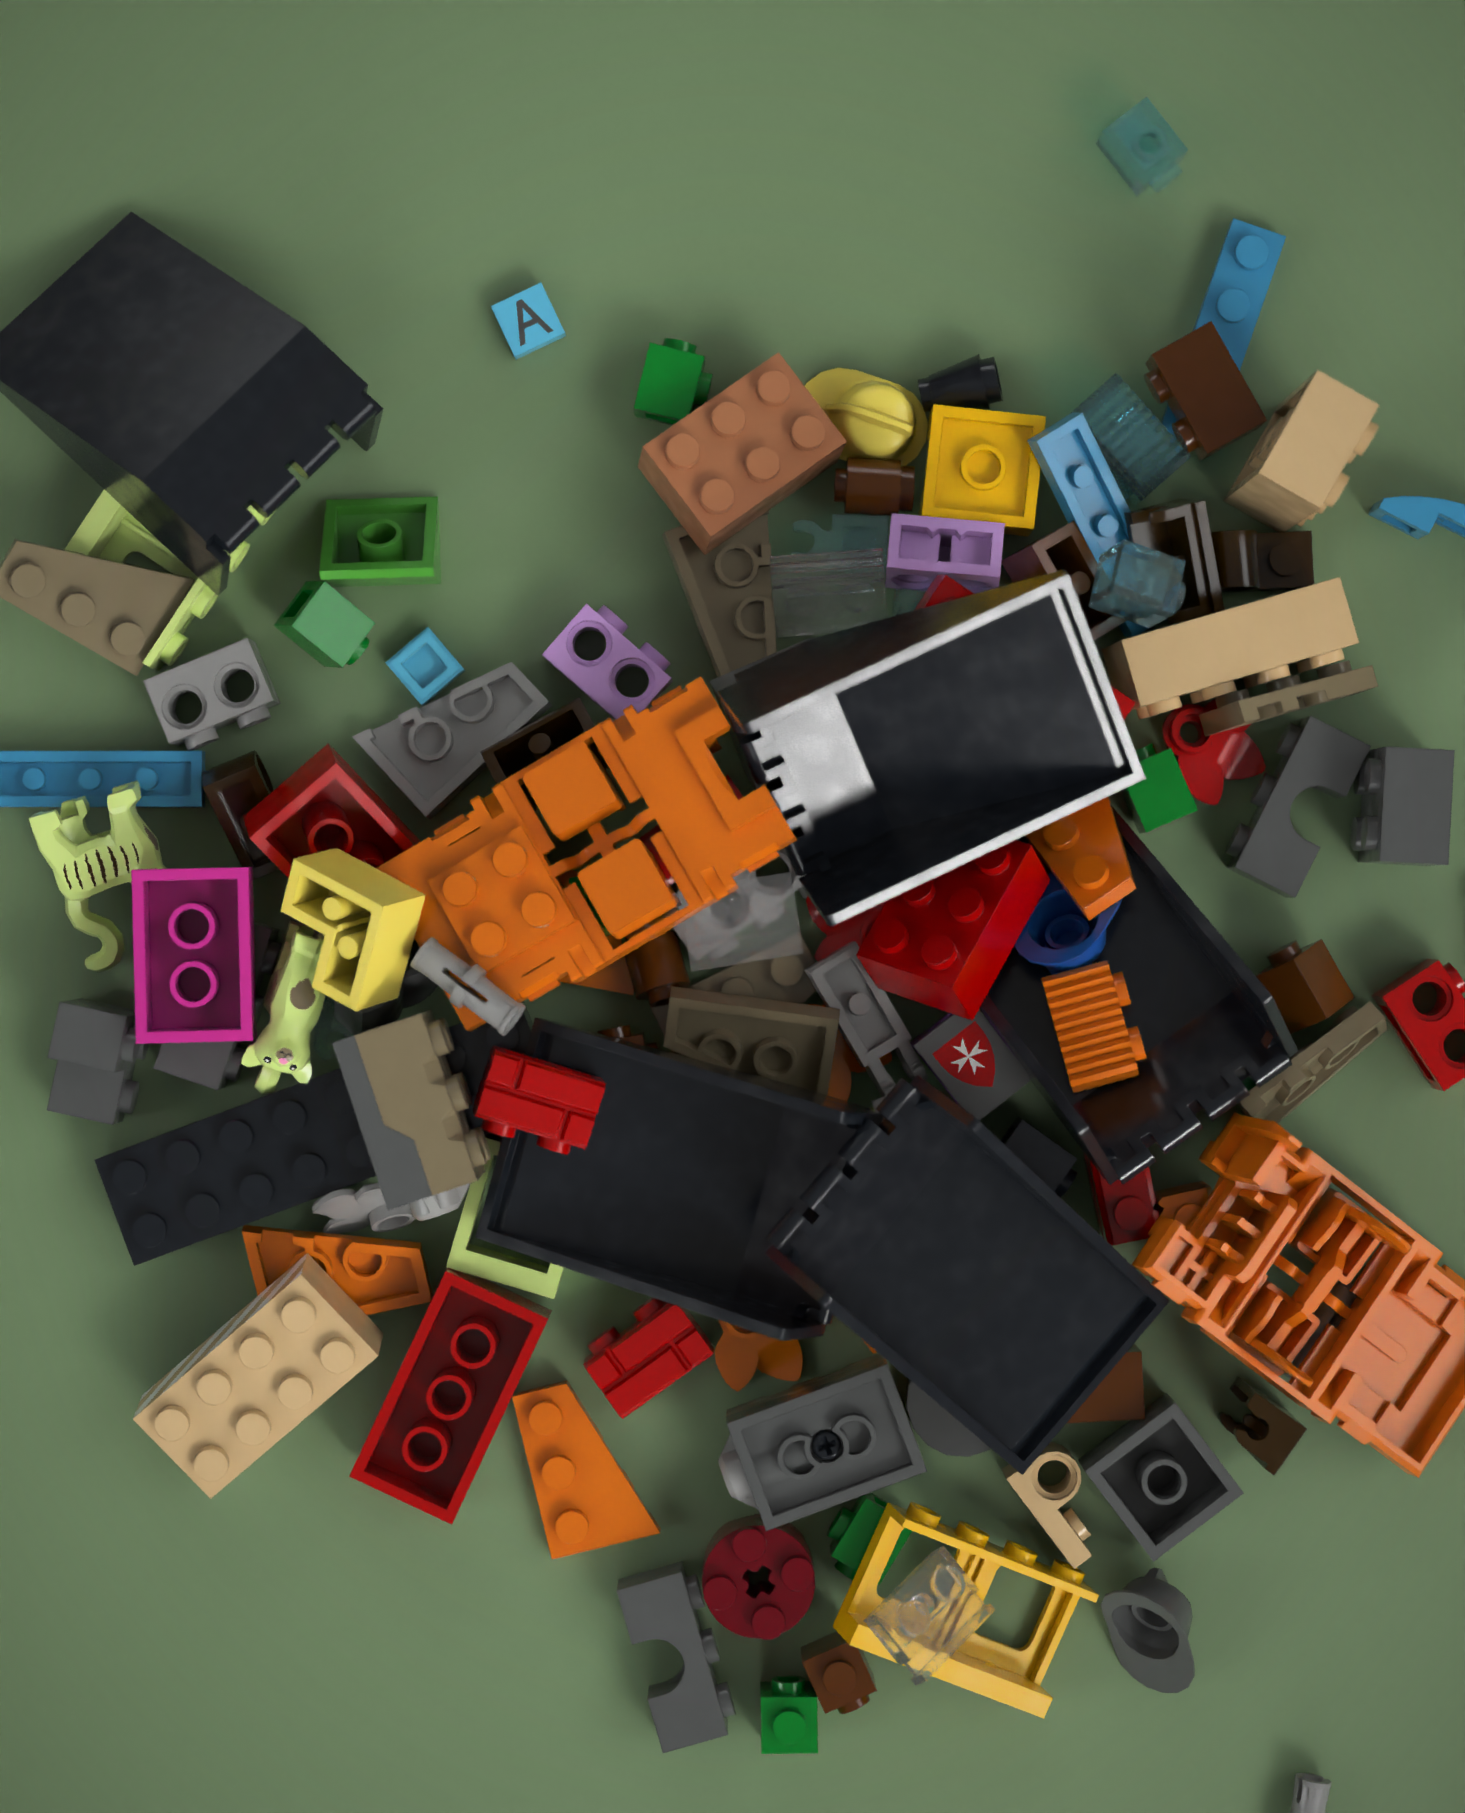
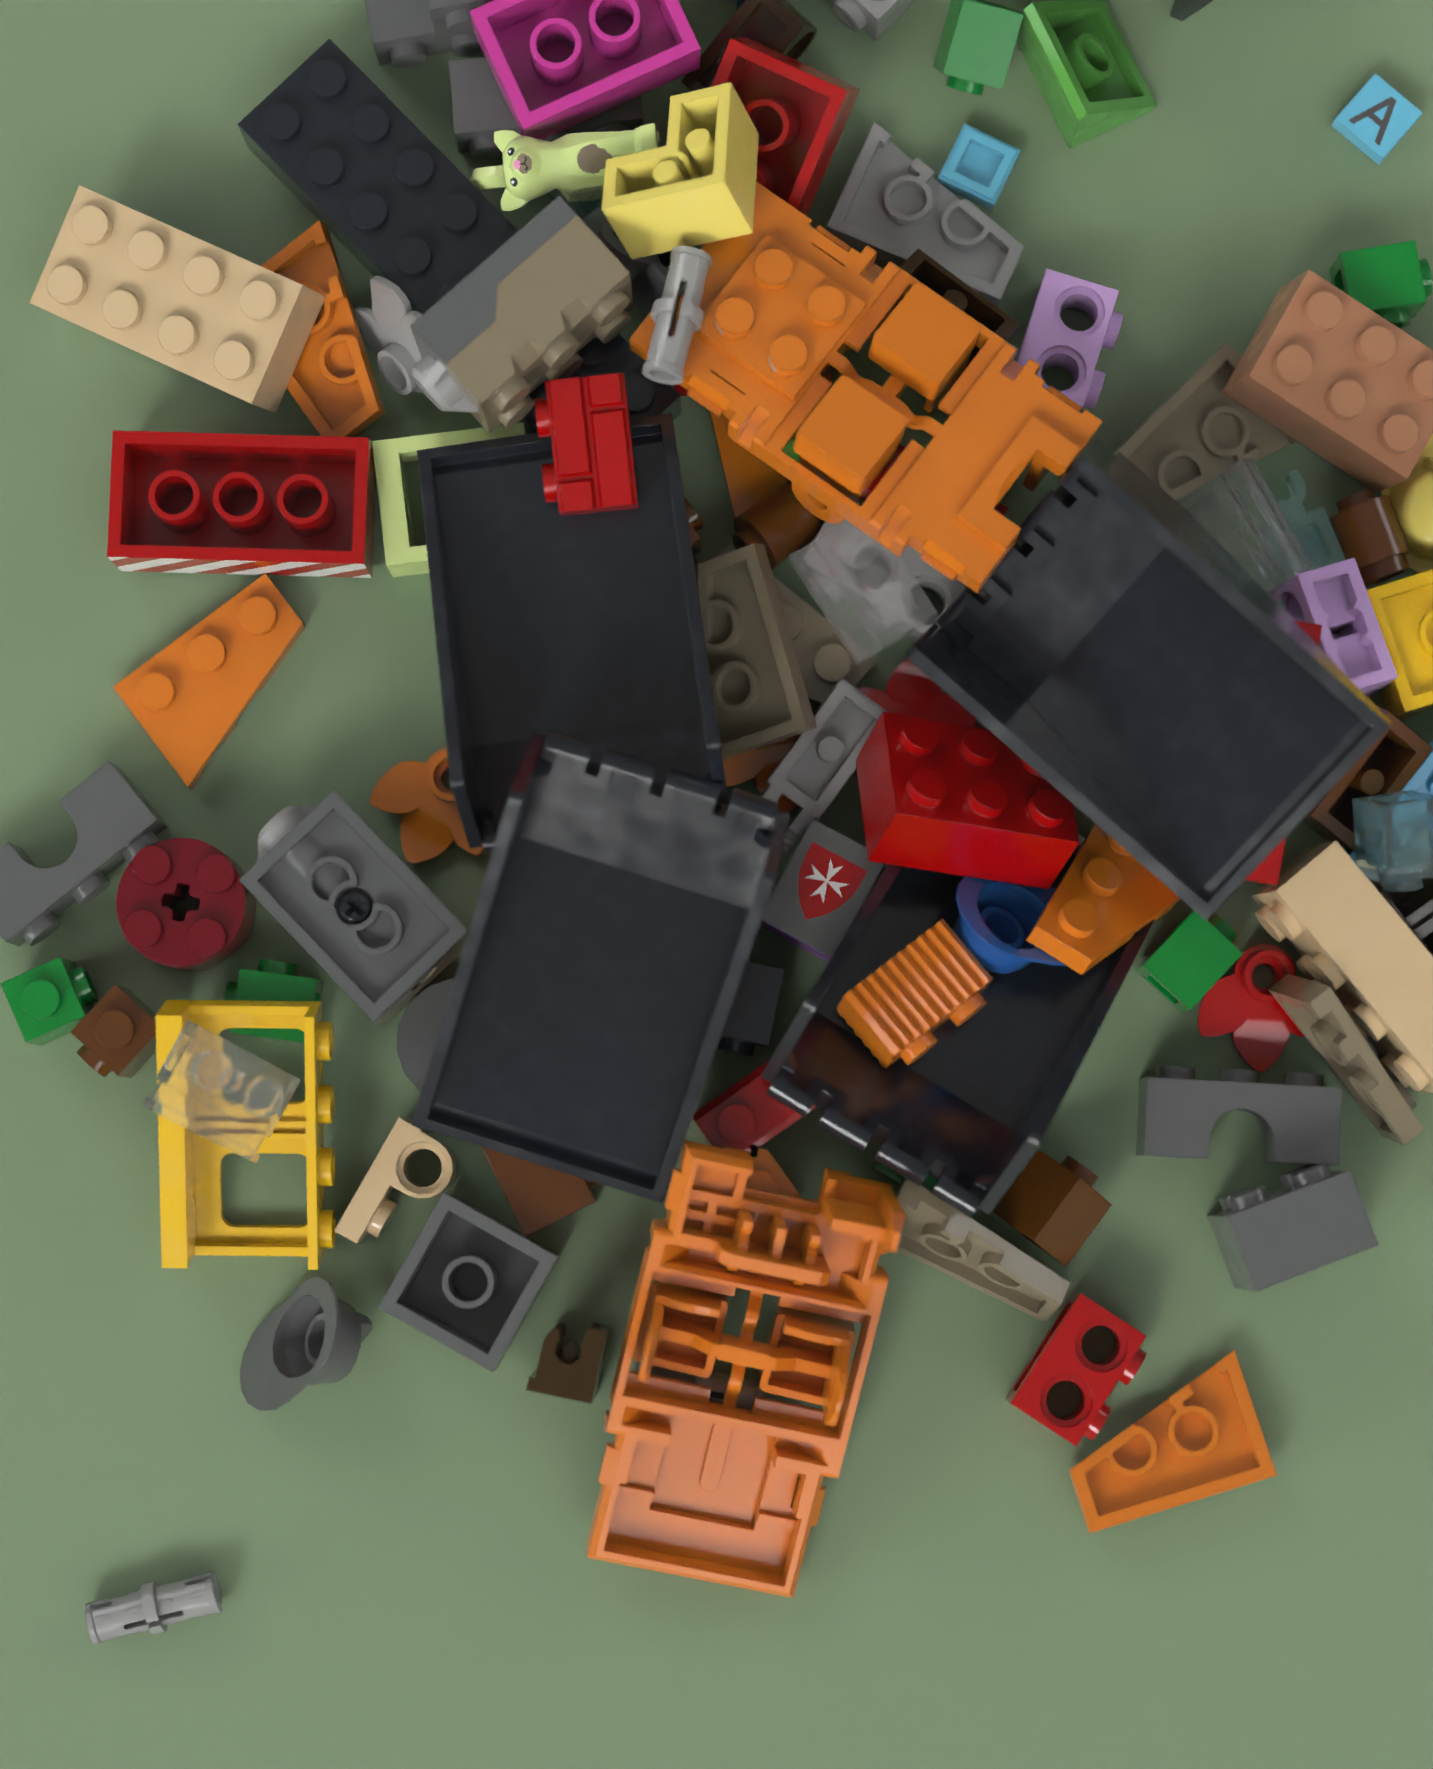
camera: 70 degrees right, 5 degrees down
(646, 1355) = (369, 692): red brick -> none

